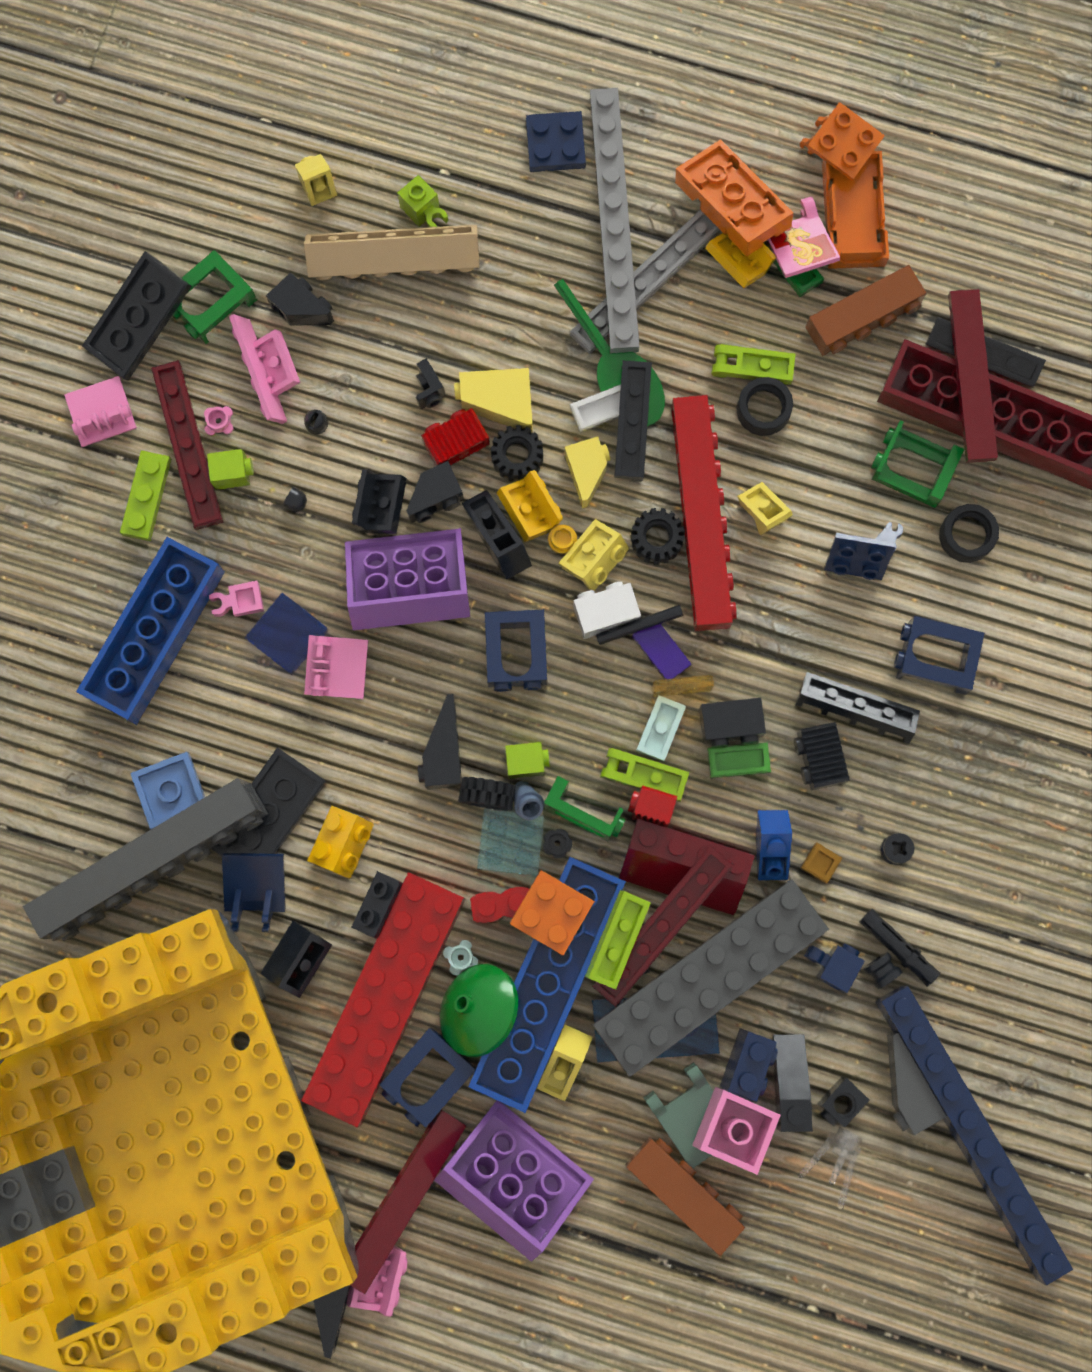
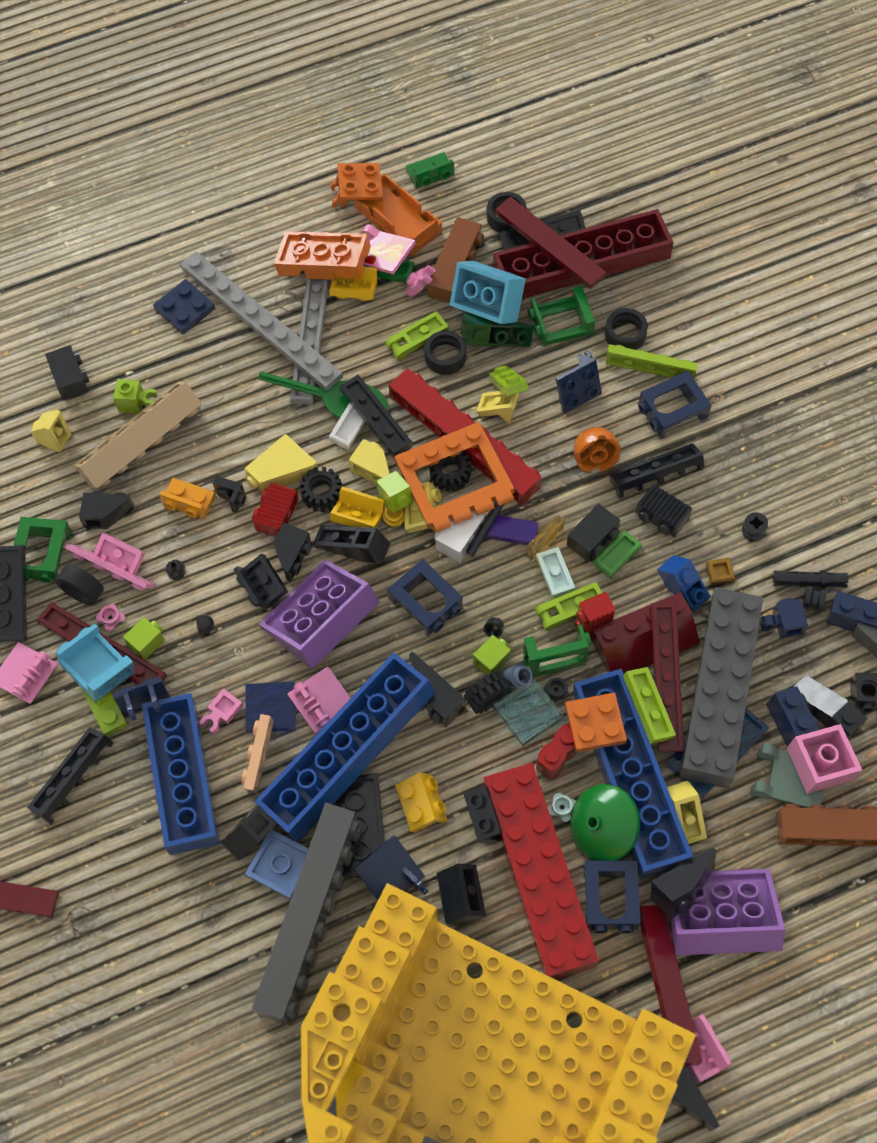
camera: 40 degrees left, 15 degrees down
(60, 545) = (69, 774): none -> black hinge
(162, 457) = (94, 663): none -> medium azure panel
(167, 738) = (248, 832): none -> black slope
(182, 530) = (131, 698): none -> dark blue plate
(212, 366) = (79, 584): none -> black tyre
(233, 671) = (257, 753): none -> light nougat plate
(311, 735) = (345, 746): none -> blue brick
(381, 126) = (67, 373): none -> black brick
(387, 356) = (187, 498): none -> light orange bracket
(487, 1129) = (680, 887): none -> black slope
(554, 732) = (489, 627): none -> black hinge
(578, 518) = (394, 491): none -> lime brick
(657, 511) = (461, 507): none -> orange hinge
(792, 493) = (508, 380): none -> lime plate
(806, 304) = (418, 279): none -> bright pink plate
(815, 636) = (596, 449): none -> orange cylinder
(831, 423) = (484, 332): none -> dark green slope
(857, 378) = (487, 292): none -> medium azure brick
(936, 184) = (430, 170): none -> green bracket
(953, 582) = (648, 362): none -> lime plate
(977, 279) = (495, 222): none -> black tyre

